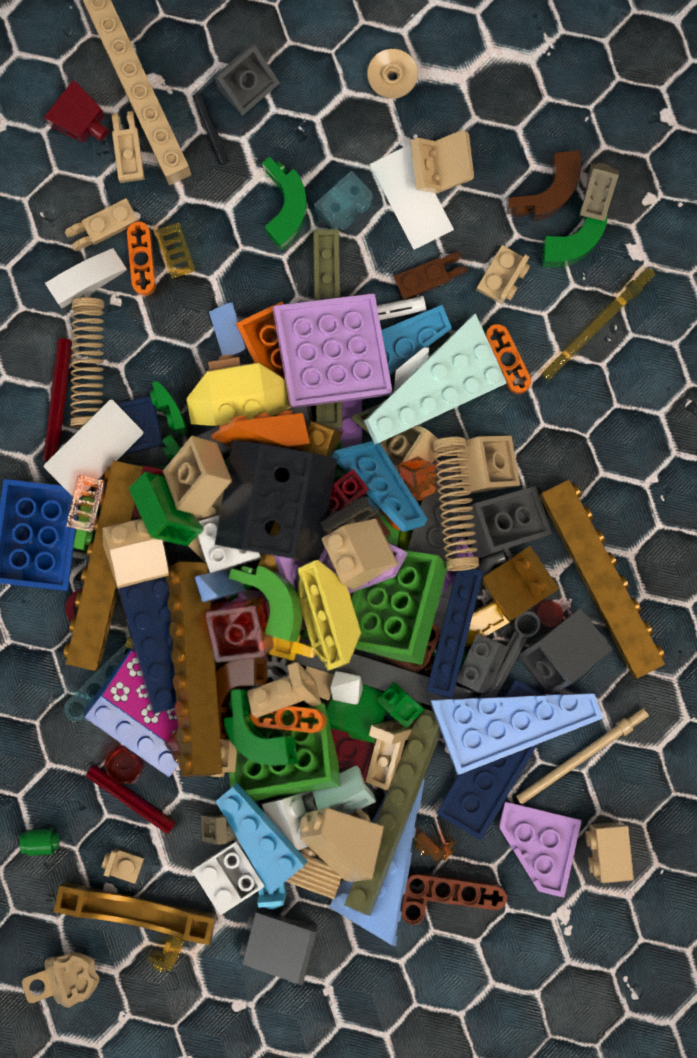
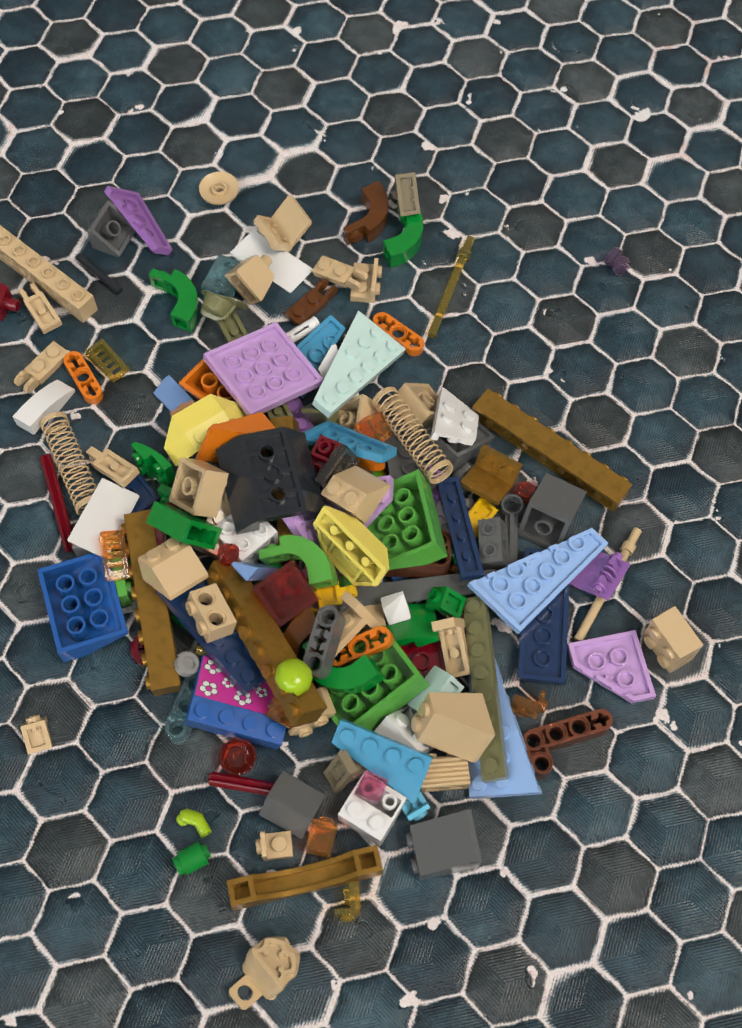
camera: 30 degrees left, 20 degrees down
(59, 804) = (194, 818): none -> lime arm
(111, 652) = (186, 664): none -> light grey tile
(128, 387) = (112, 466): none -> tan hinge
(156, 836) = (292, 804): none -> dark grey slope
(160, 619) = (215, 611): none -> tan brick
(169, 882) = (322, 837): none -> clear orange brick
(197, 562) = (228, 554): none -> clear red plate
(200, 733) = (293, 676): none -> lime hair
(234, 863) = (371, 787): none -> clear pink tile
(251, 692) = (320, 634): none -> dark grey beam
(283, 72) = (140, 218): none -> medium lavender wing
(318, 245) = (220, 307): none -> olive piece
(376, 217) = (252, 278): none -> tan torso
(476, 251) = (339, 273): none -> tan hinge
(511, 503) = (454, 420): none -> white wing
(580, 748) = (602, 575): none -> medium lavender hinge

